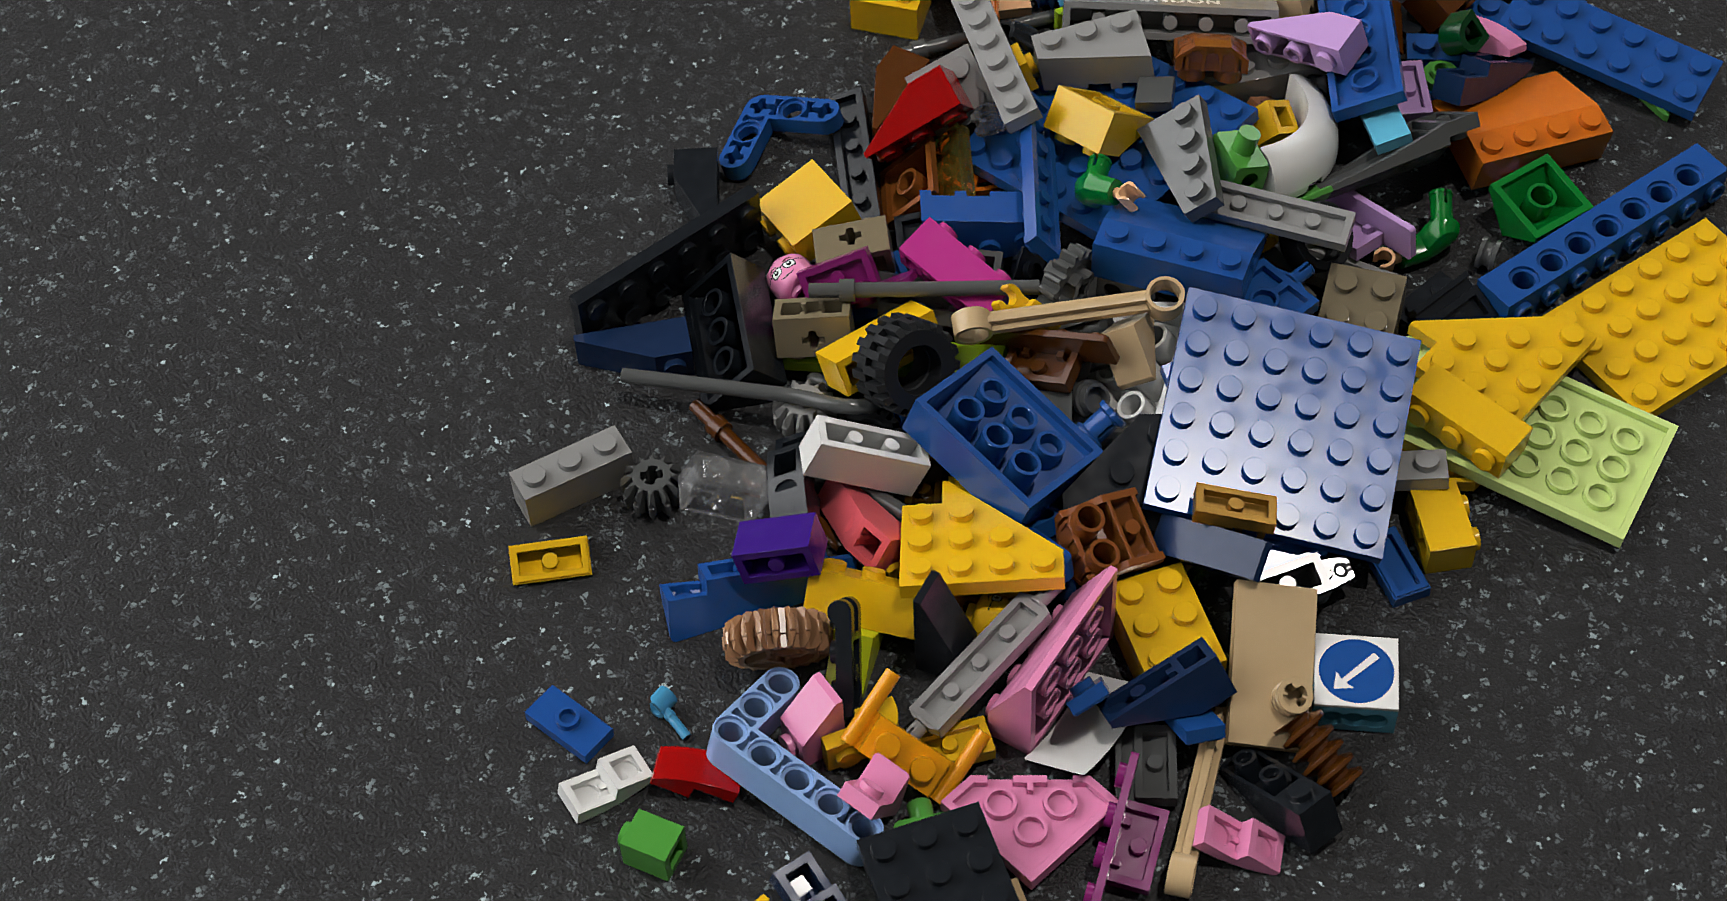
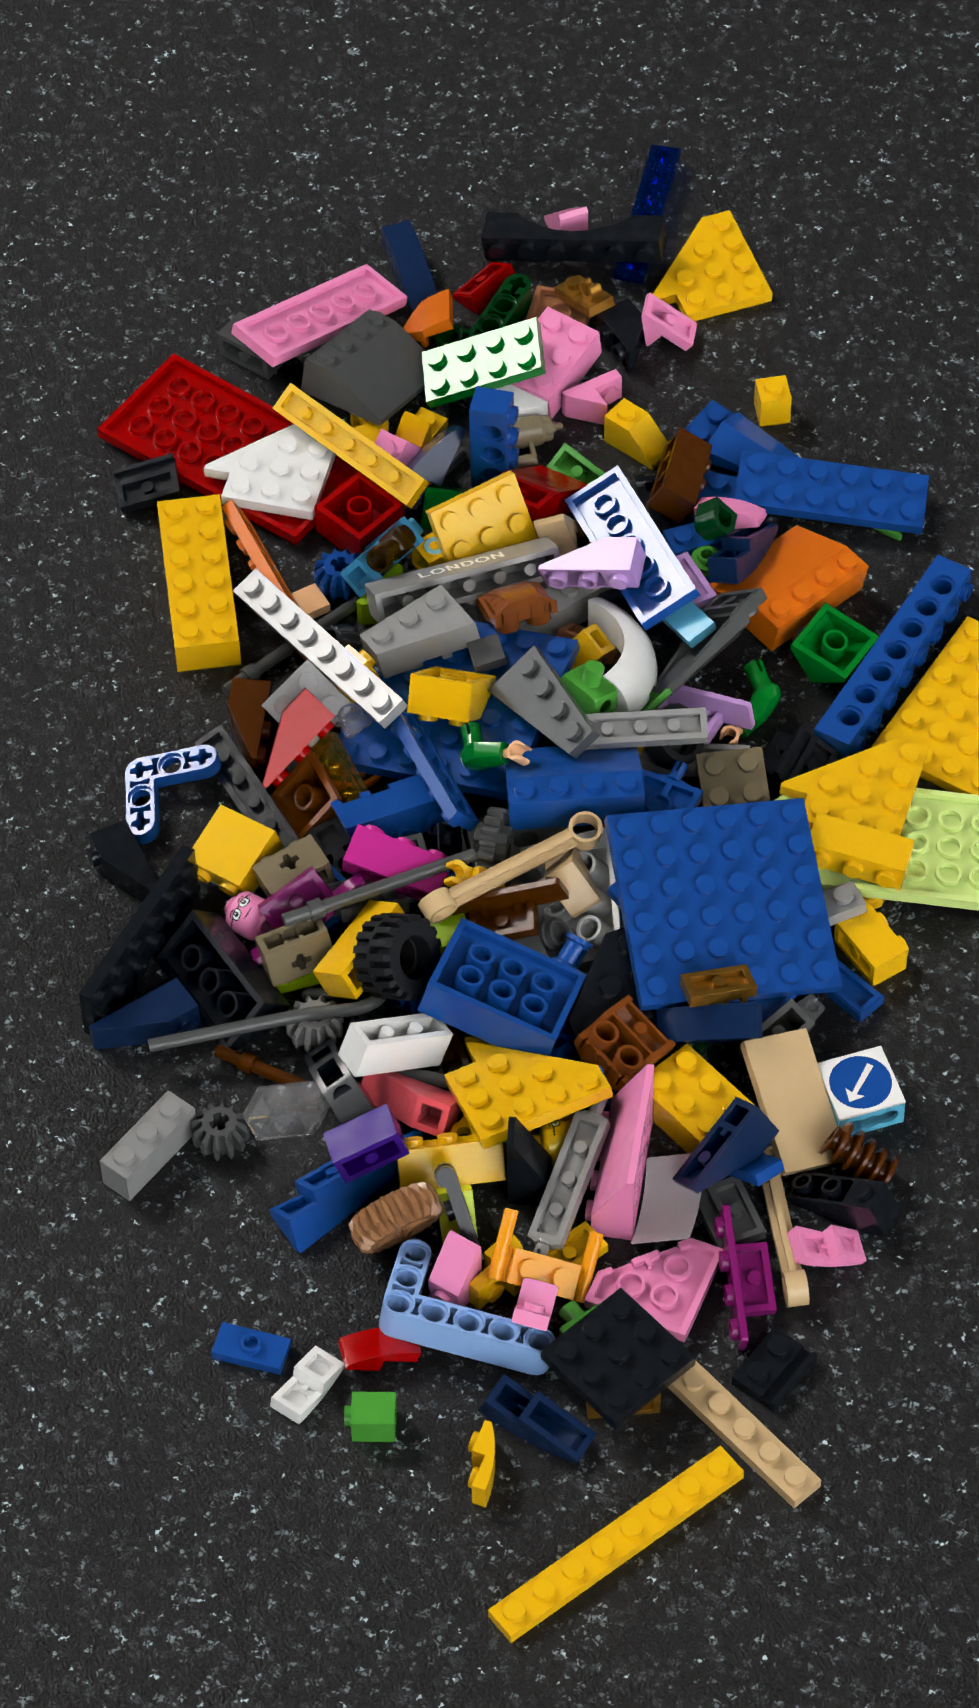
camera: 25 degrees left, 0 degrees up
(550, 560) = (163, 1222): yellow slope -> none
(661, 703) = (320, 1308): dark azure hand -> none
(1086, 695) = (664, 1175): blue plate -> none
(1292, 709) = (813, 1128): tan bush -> none
(1488, 254) = (810, 703): dark grey bush -> none

